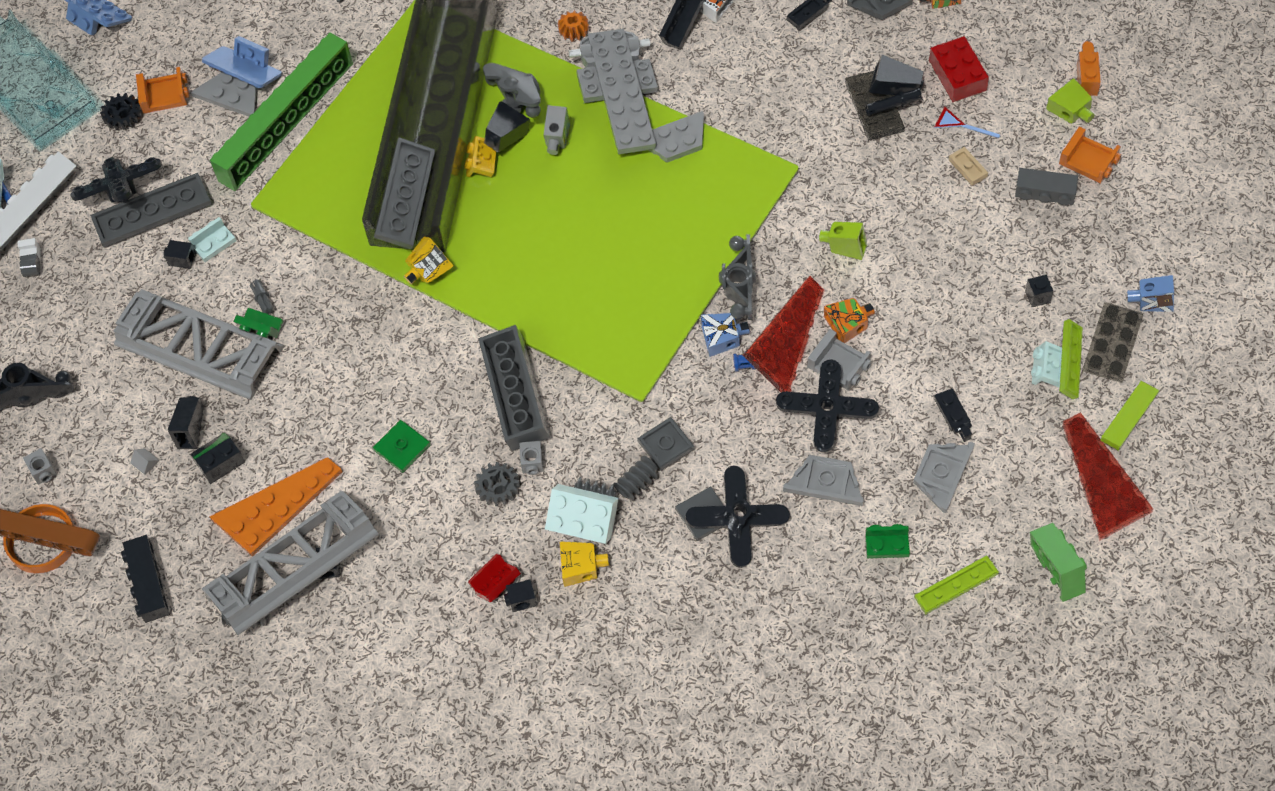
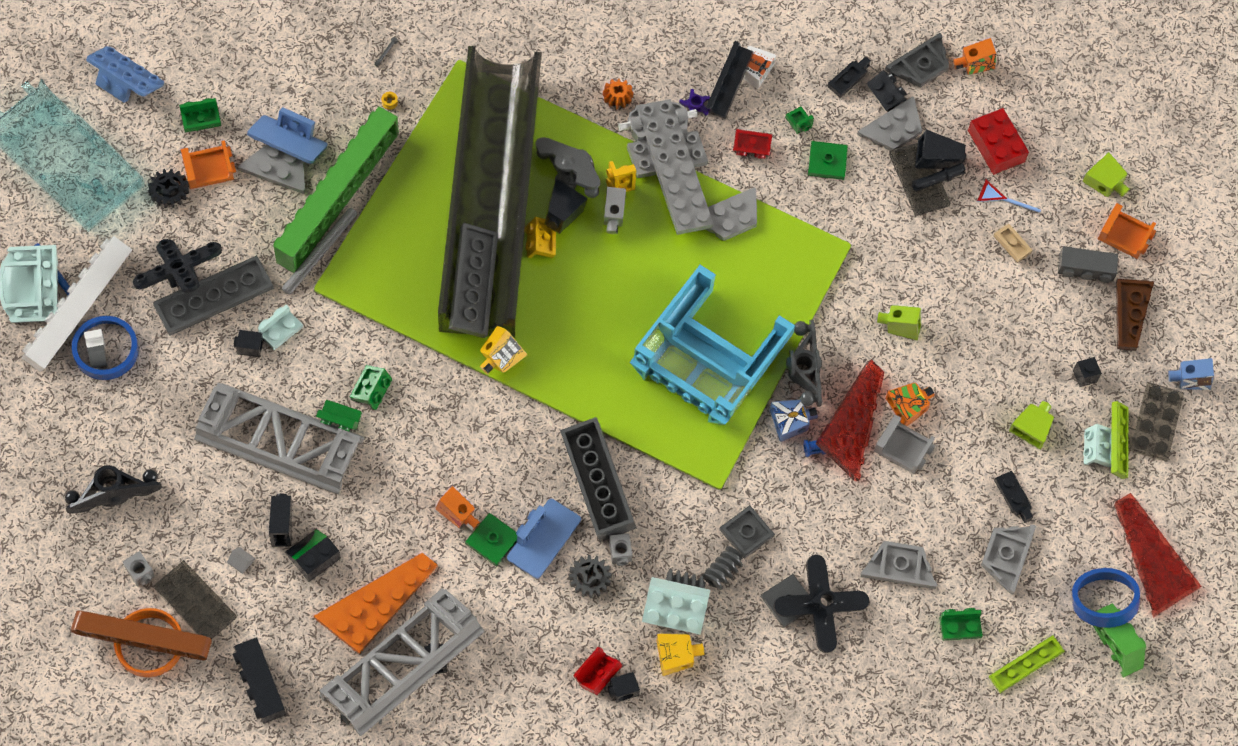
camera: 15 degrees left, 5 degrees up
(48, 278) = (112, 373): none -> blue piece
(92, 499) = (194, 601): none -> clear smoke plate
(160, 44) = (200, 115): none -> green bracket
(261, 169) = (319, 251): none -> light grey axle
(261, 296) = (337, 387): dark grey axle -> none
(296, 296) = (371, 386): none -> green bracket
(343, 30) = (389, 106): none -> yellow bush
(365, 413) = (451, 504): none -> orange torso
(452, 444) = (542, 537): none -> medium blue bracket
(566, 97) = (621, 178): none -> yellow bracket
(625, 272) = (698, 361): none -> medium azure piece
(652, 33) = (695, 102): none -> dark purple animal
(705, 71) = (752, 143): none -> red bracket
(755, 50) = (799, 120): none -> green bracket
(781, 88) = (827, 160): none -> green plate
(827, 398) = (898, 483): black piece -> none
(847, 23) = (886, 90): none -> black bracket
(852, 57) = (895, 126): none -> light grey wing
(978, 342) = (1033, 424): none -> lime torso
(1045, 537) = (1106, 619): none -> blue piece
(1088, 69) = (1121, 141): orange hinge -> none
(1090, 232) = (1131, 310): none -> reddish brown wing
(1129, 415) = (1176, 495): lime tile -> none

